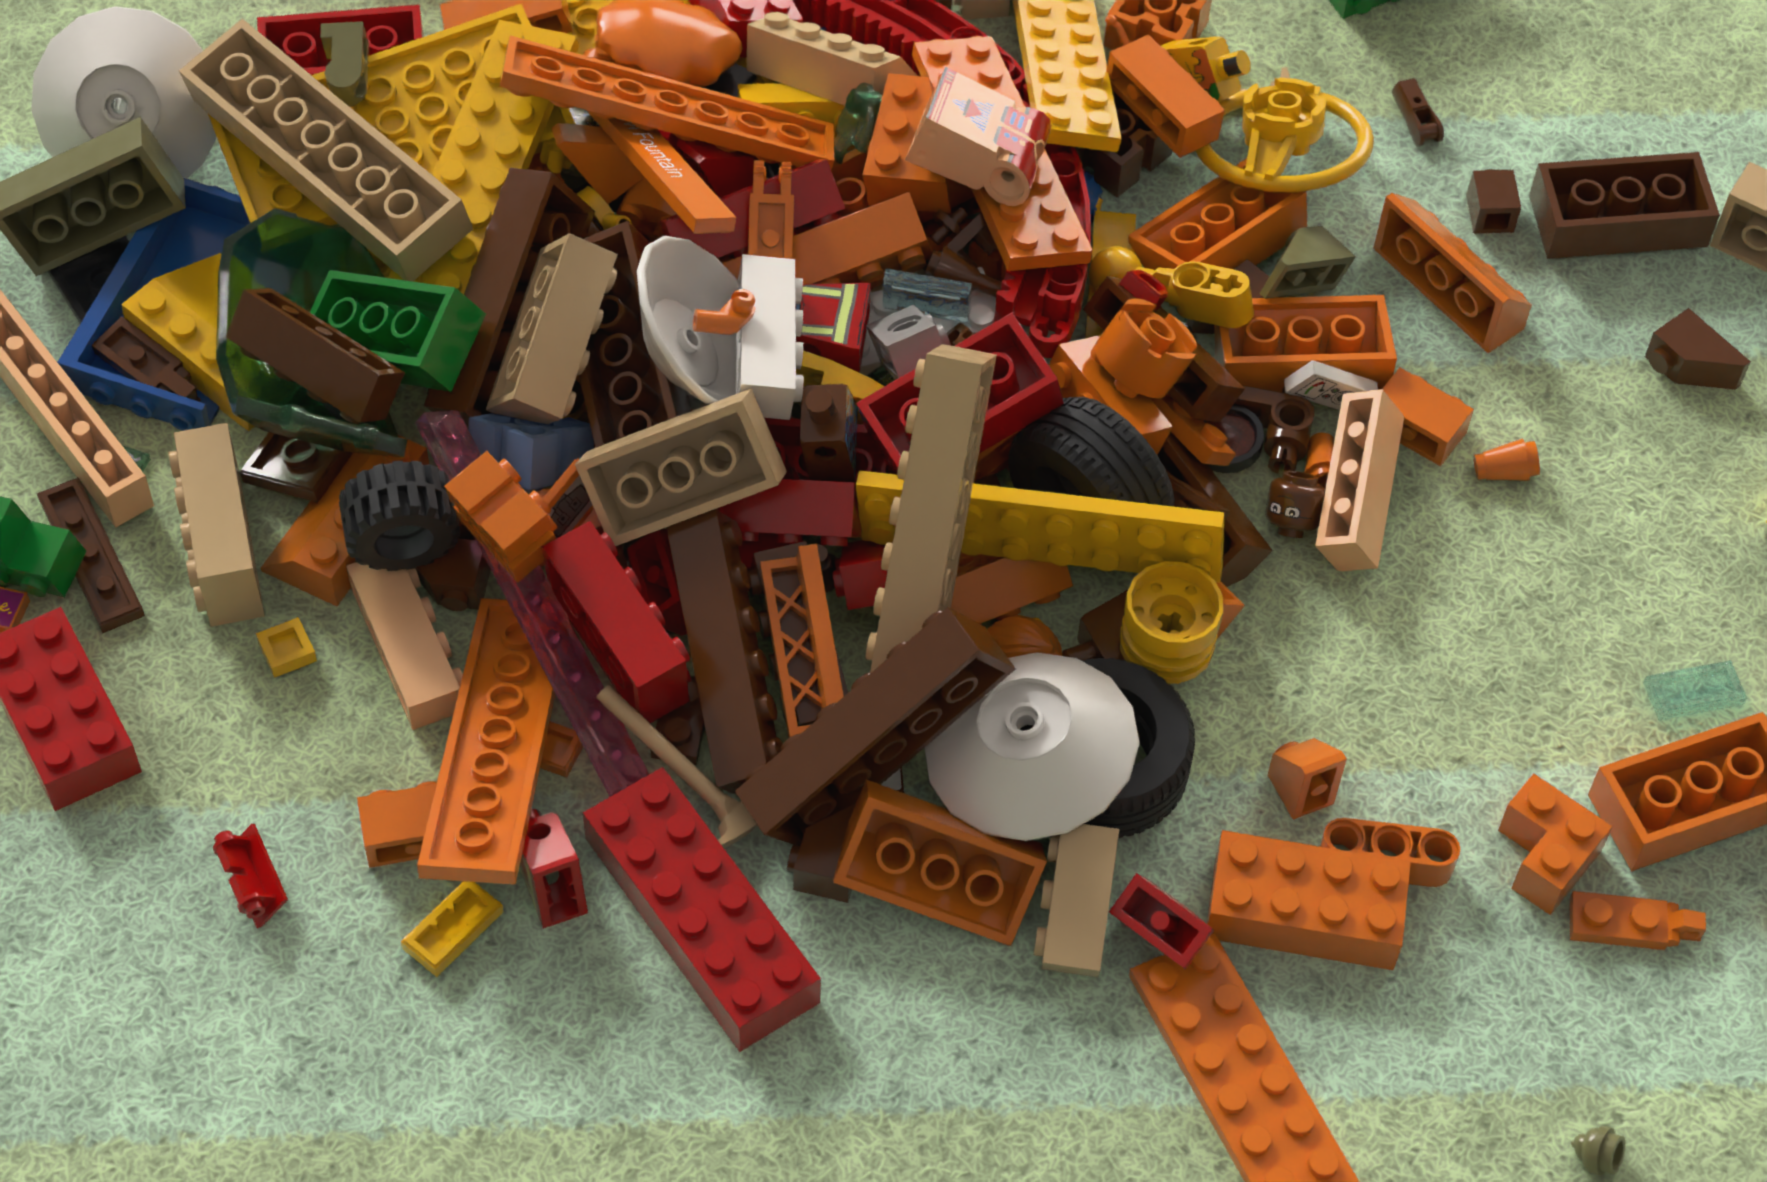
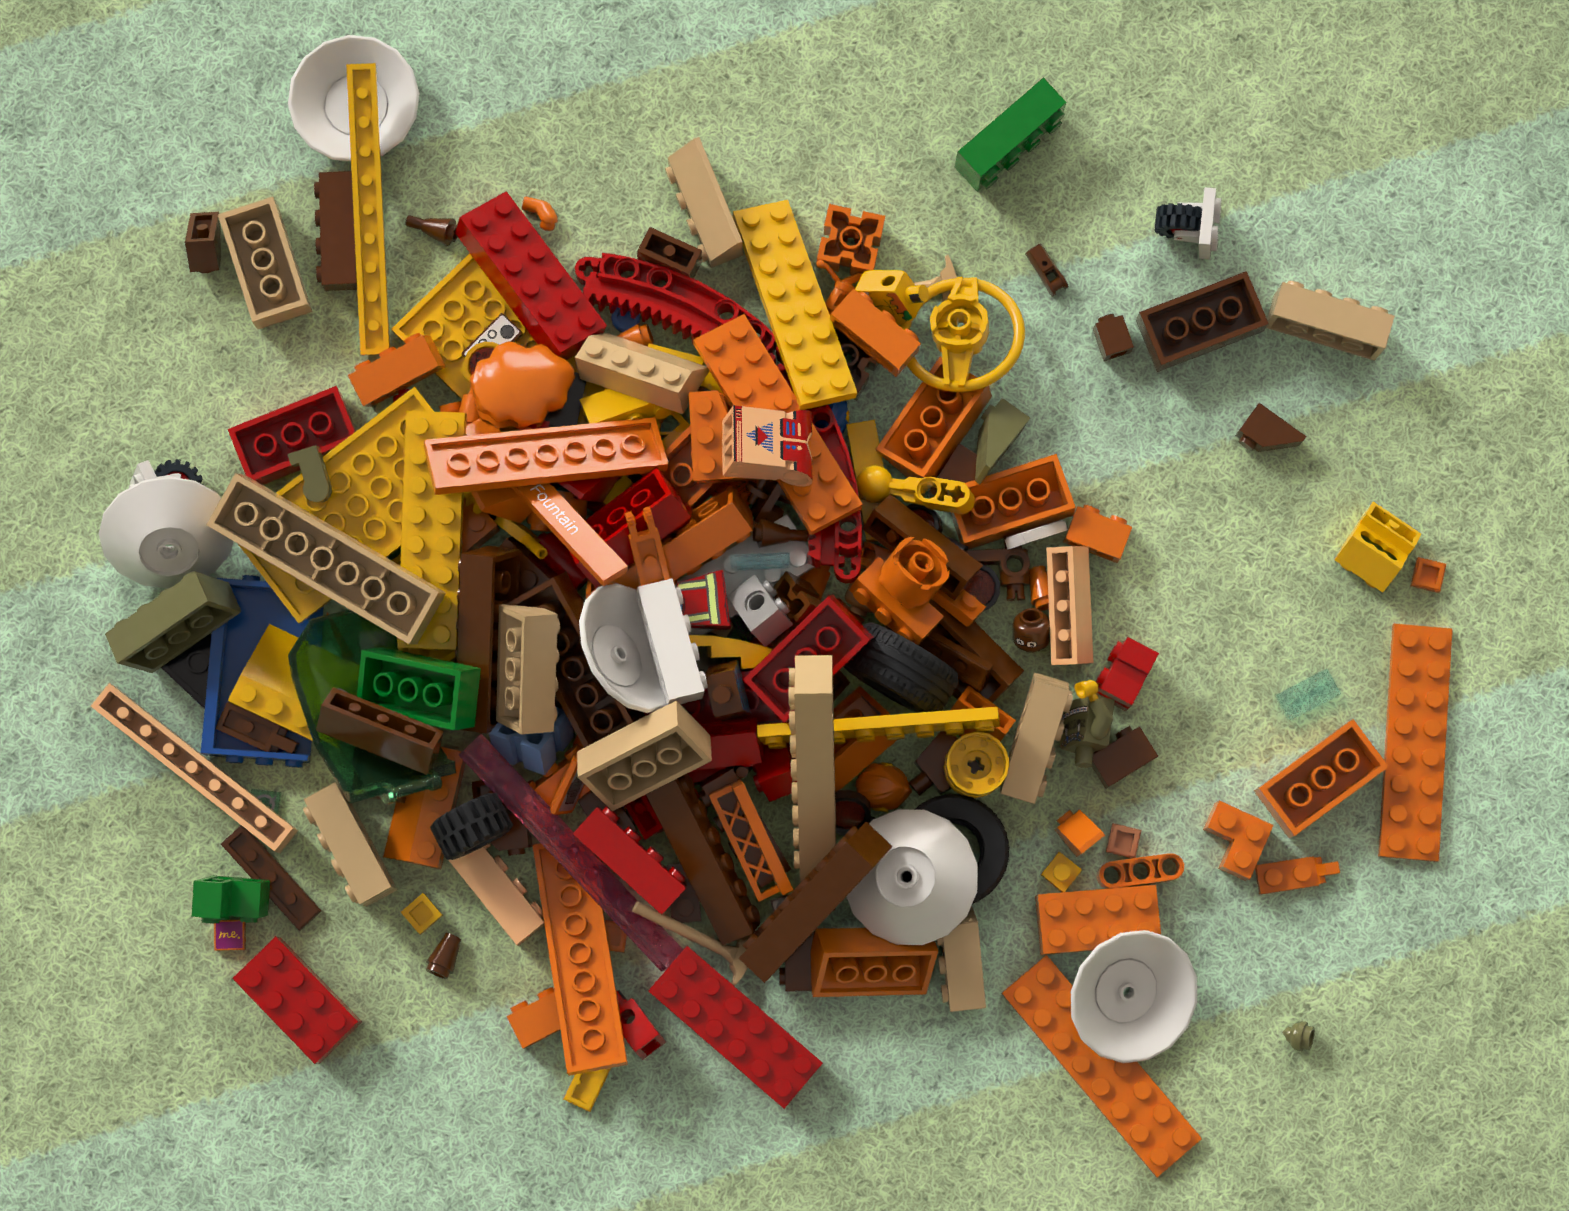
camera: 15 degrees left, 25 degrees up
(254, 877) = (465, 1088): red hinge -> none
(294, 712) = (444, 956): none -> reddish brown cone
(502, 514) = (543, 823): orange brick -> none
(729, 318) = (646, 650): orange arm -> none
(856, 120) = (673, 424): plate -> none
(1144, 287) = (901, 507): red tile -> none
(1161, 920) = (1016, 964): red slope -> none
(1267, 822) = (1061, 872): none -> yellow plate
(1269, 618) = (1034, 738): none -> tan brick
(1350, 622) = (1087, 723): none -> olive torso
(1372, 805) = (1123, 841): none -> nougat tile
(1384, 997) = (1153, 1011): none -> white dish
(1394, 696) = (1123, 756): none -> reddish brown brick
(1424, 581) = (1127, 672): none -> red brick
(1449, 273) = (1096, 410): orange slope -> none
(1508, 462) = (1161, 553): orange cone -> none
(1631, 93) = (1192, 222): none -> plate

